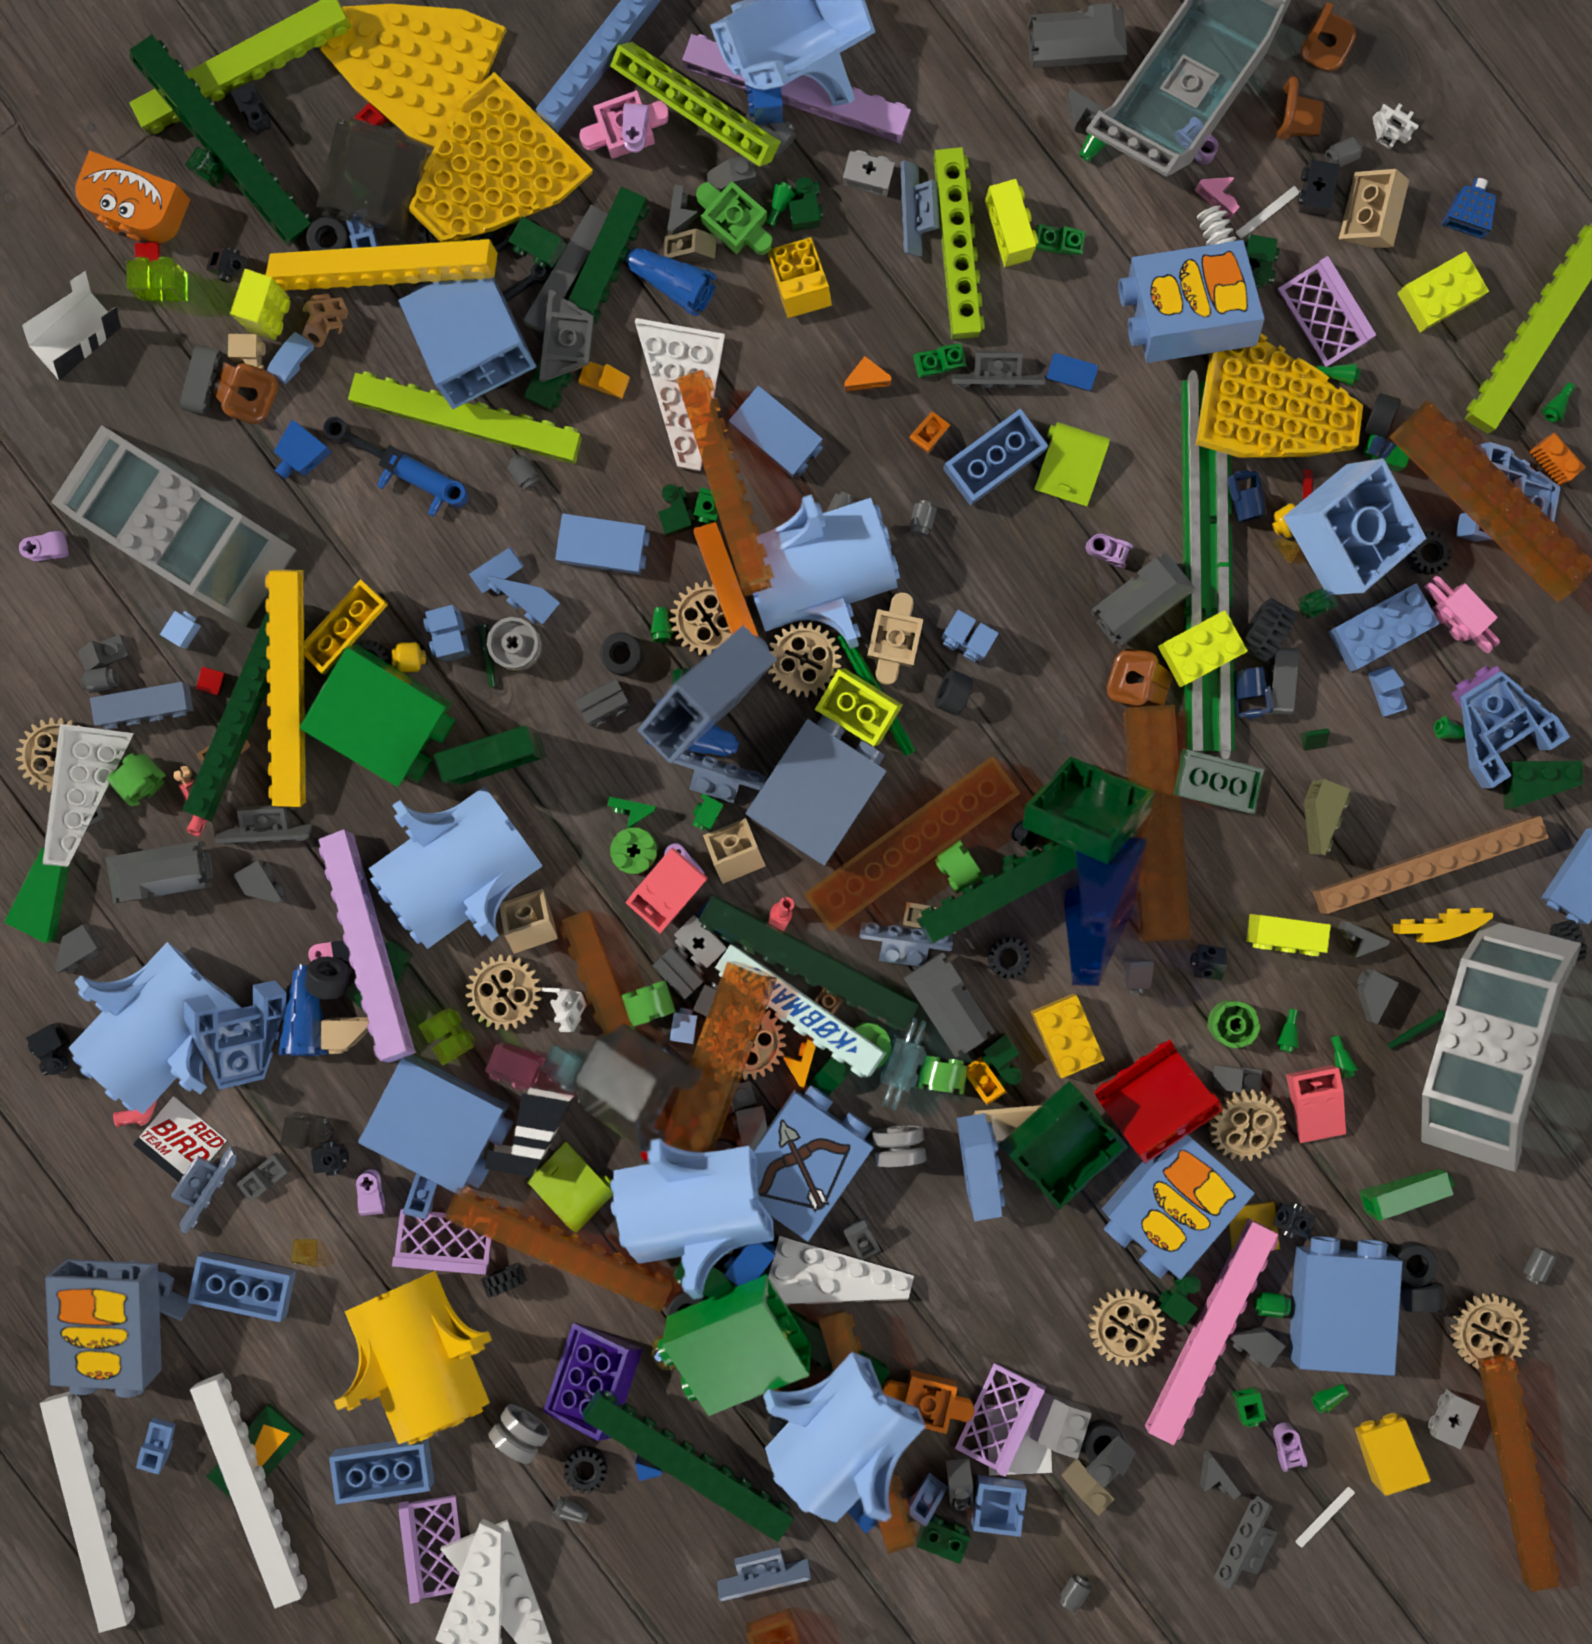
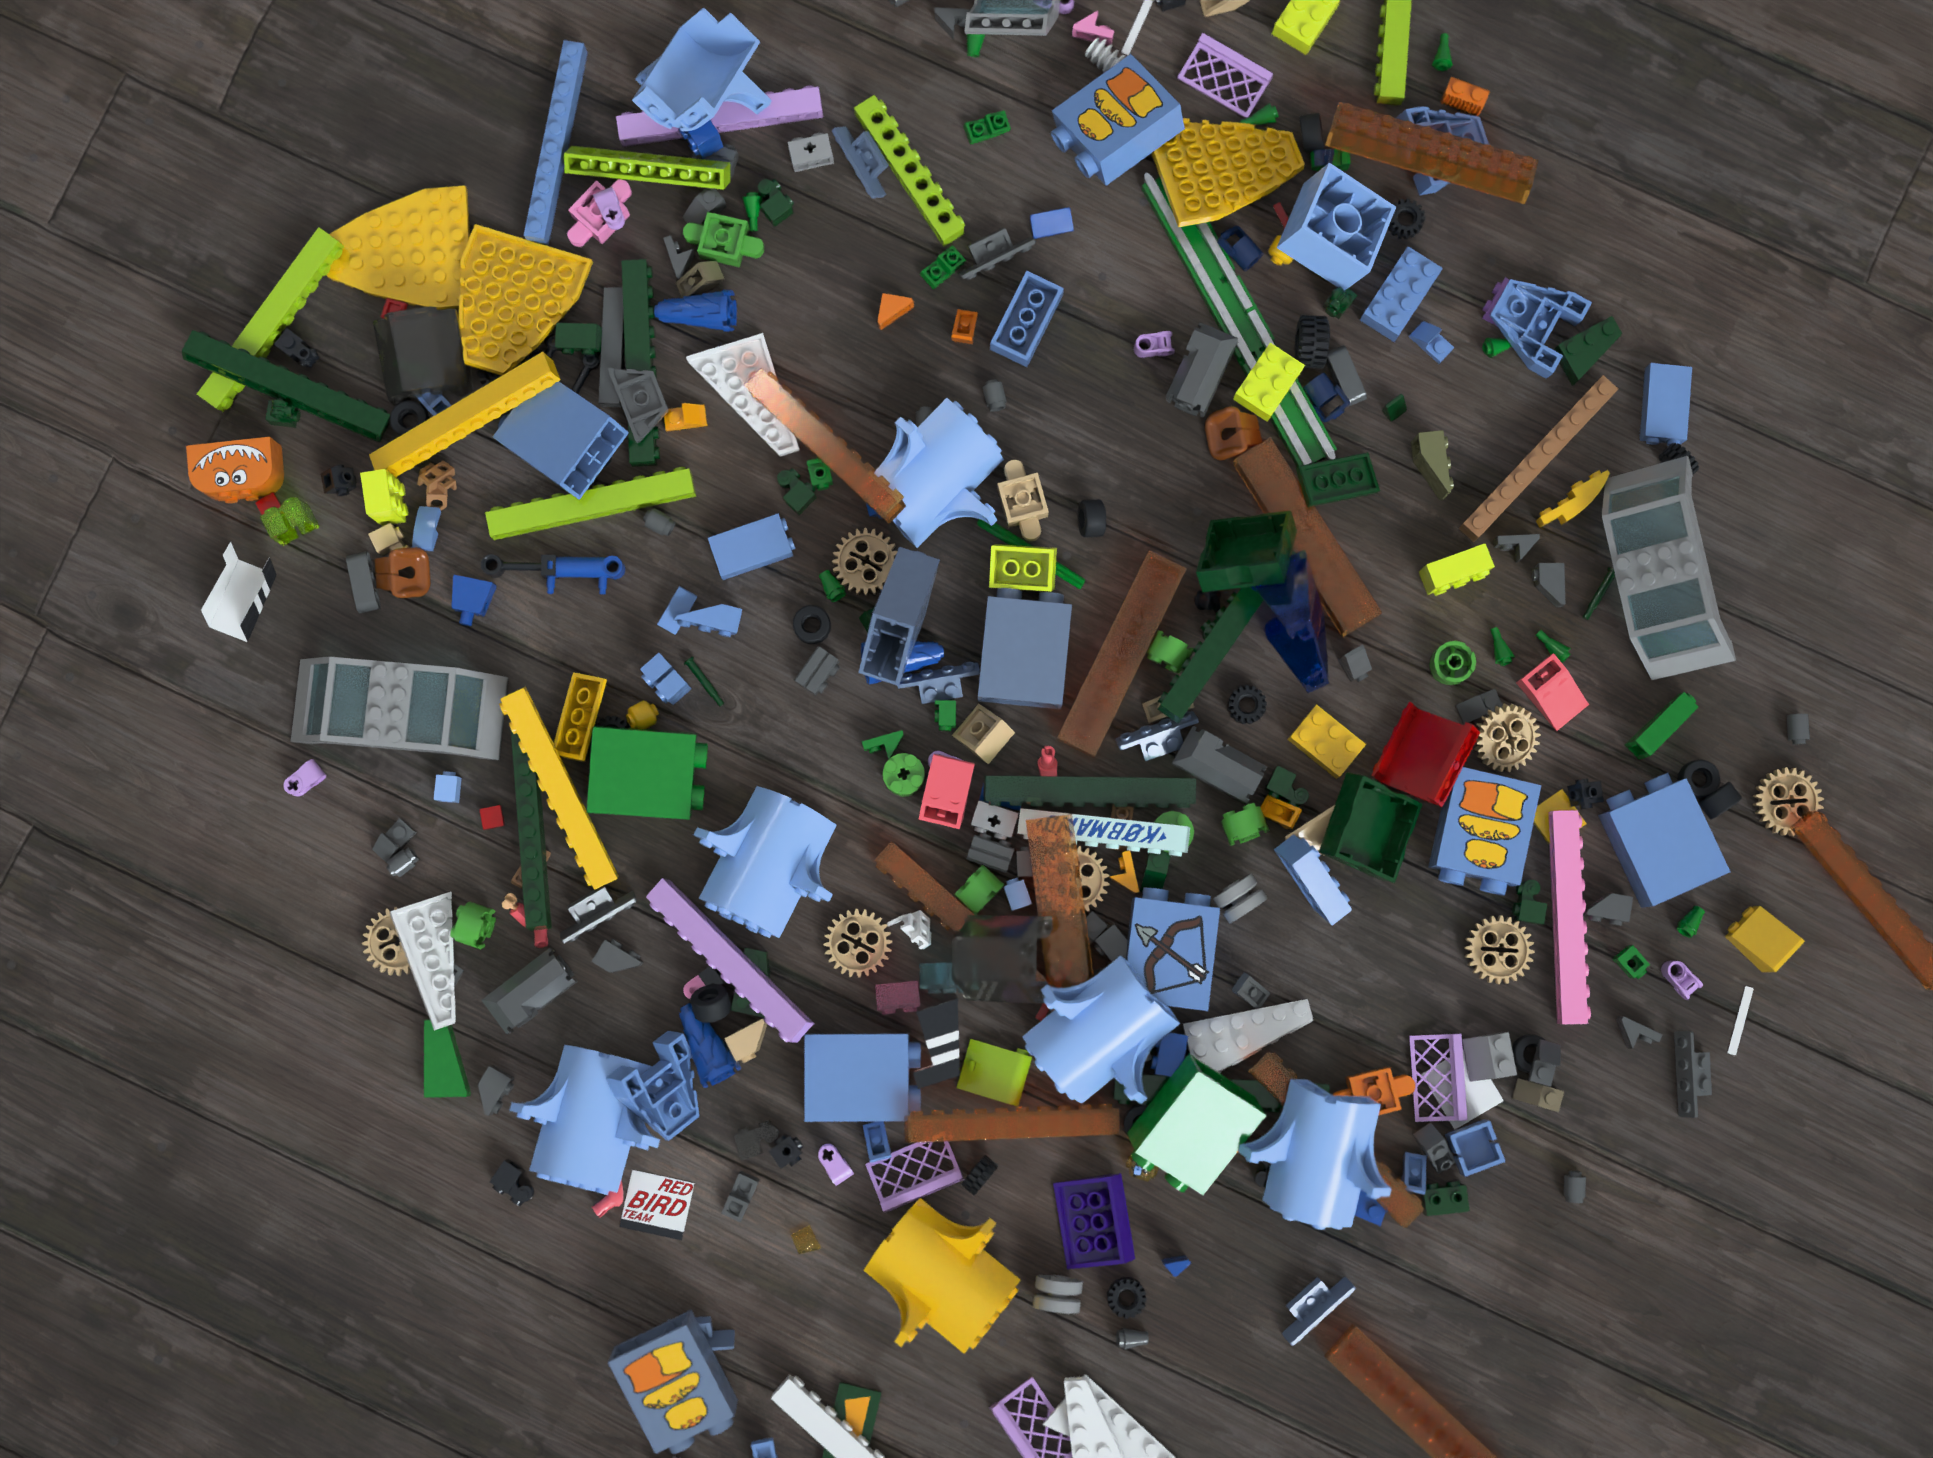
camera: 20 degrees left, 5 degrees down
(141, 704) = (446, 864): sand blue brick -> none
(199, 1184) = (691, 1229): sand blue bracket -> none
(242, 1286) = (769, 1293): medium blue brick -> none
(381, 1470) = (961, 1384): medium blue brick -> none
(440, 1025) = (822, 994): clear neon green piece -> none
(490, 755) = (751, 755): dark green tile -> none
(501, 639) = (714, 651): light grey wheel -> none
(528, 921) = (848, 876): tan slope -> none
(687, 1464) = (1206, 1245): dark green brick -> none
(723, 578) = (861, 522): orange tile -> none
(776, 432) = (844, 388): medium blue brick -> none
(799, 277) = (799, 259): yellow slope -> none
(813, 640) = (958, 536): tan gear -> none
(902, 1063) = (1208, 831): clear light blue brick -> none
(978, 643) = (1091, 468): medium blue piece -> none
(1011, 222) = (942, 133): neon yellow brick -> none
(1071, 460) = (1089, 290): lime door -> none
(1209, 962) = (1407, 624): black brick -> none
(1262, 254) = (1151, 58): dark green brick -> none
(1272, 1304) = (1605, 871): green brick -> none
(1286, 548) = (1292, 272): clear yellow slope -> none
(1456, 1430) = (1800, 875): light grey brick -> none
(1463, 613) = (1456, 251): bright pink brick -> none

